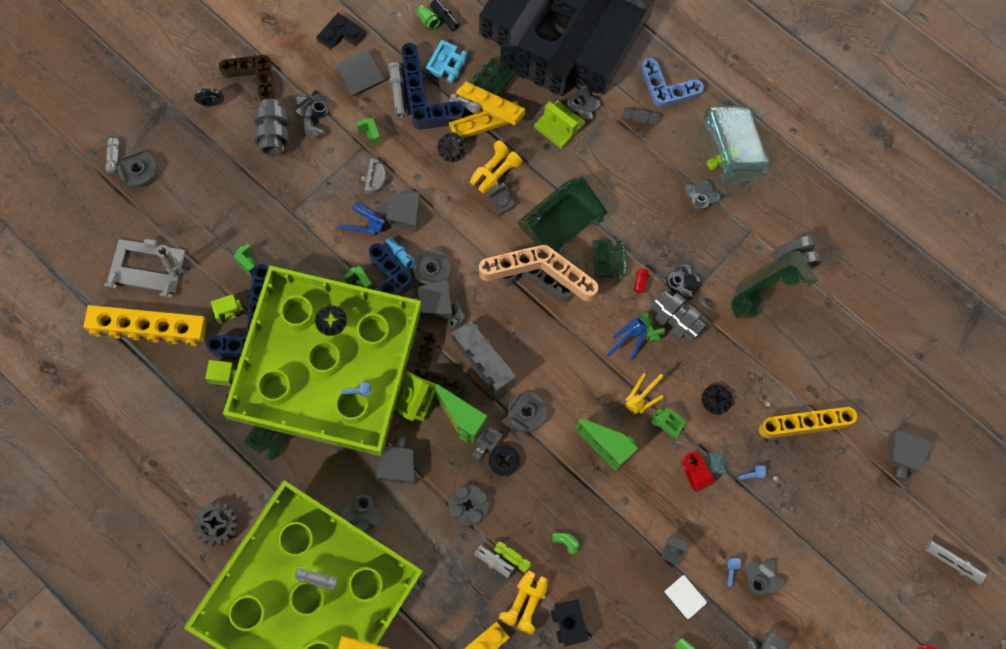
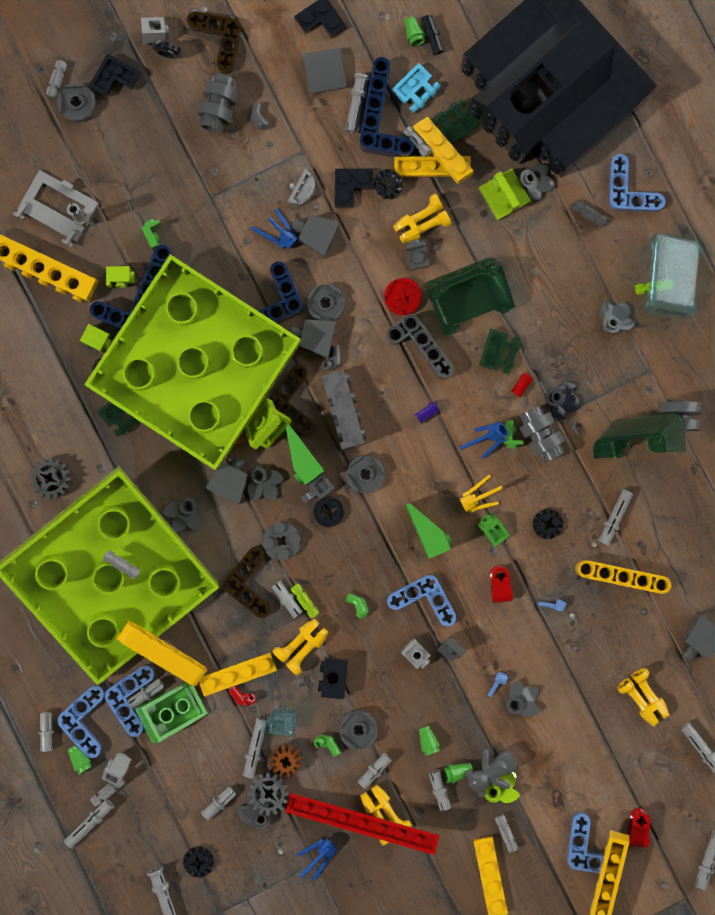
camera: 25 degrees right, 15 degrees up
(164, 131) = (113, 71): none -> black plate
(190, 84) = (153, 30): none -> light grey brick
(312, 106) = (263, 90): black plate -> none
(336, 326) = (213, 338): black gear -> none
(359, 276) = (255, 293): bright green bracket -> none
(363, 390) = (219, 407): medium blue hand -> none
(369, 126) = (316, 142): bright green bracket -> none
(399, 253) = (299, 277): dark azure pin -> none
(413, 160) = (349, 180): none -> black plate
(433, 458) = (264, 486): none -> dark grey plate
(441, 559) = (241, 579): none -> dark brown beam
(500, 239) = (402, 296): none -> red tile
(546, 265) = (424, 335): light nougat beam -> none
(566, 331) = (427, 412): none -> dark purple pin
(632, 506) = (430, 593): none -> medium blue beam
(634, 569) = (412, 647): none -> light grey brick
(685, 597) = (446, 690): white sticker -> none
(716, 463) = (522, 583): clear light blue bush -> none
(776, 391) = (625, 497): none -> light grey pin
(885, 542) = (654, 703): none -> yellow piece

